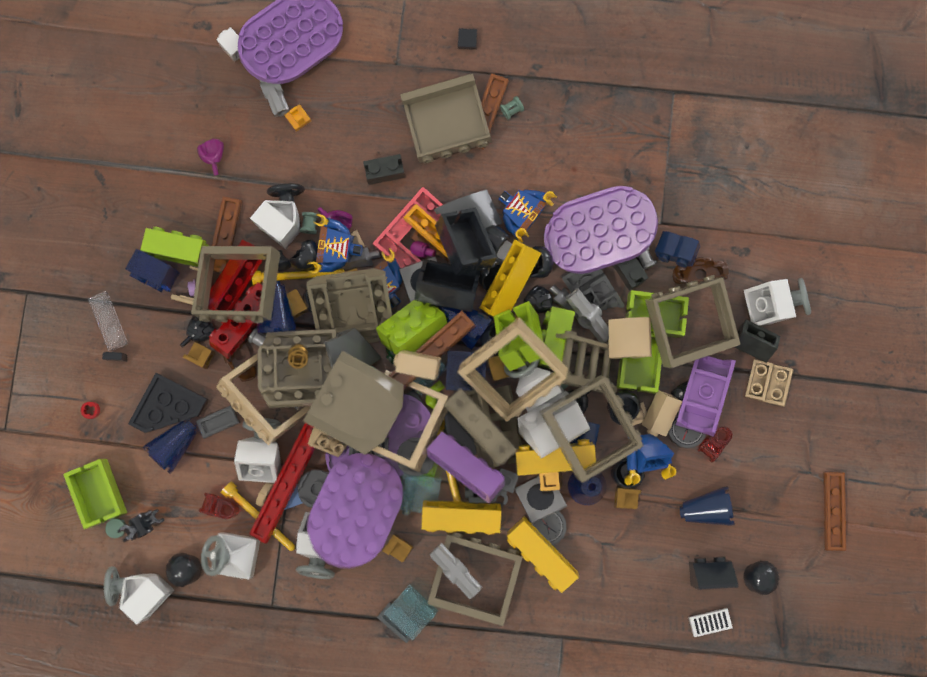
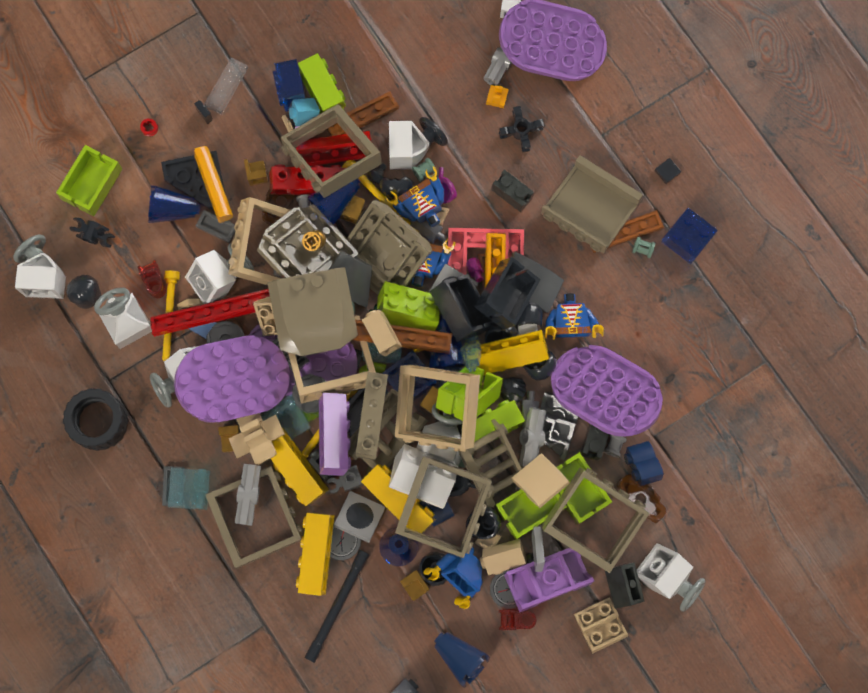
camera: 45 degrees right, 5 degrees down
(113, 526) = (74, 212): sand green tile -> none
(182, 397) = (213, 184): none -> light orange brick
(183, 277) = (303, 110): none -> medium azure brick
(197, 331) = (272, 155): black piece -> none
(211, 153) = (416, 56): magenta piece -> none
(278, 659) = (79, 403): none -> black tyre
(333, 117) = (535, 126): none -> black pin
(416, 531) = (254, 439): none -> tan piece
(490, 309) = (471, 353): none -> clear light blue piece
(532, 66) = (689, 235): none -> clear blue brick
(551, 481) = (379, 513): panel -> none
(611, 609) = (317, 645): none -> black piece
(679, 383) = (538, 550): none -> light grey tile

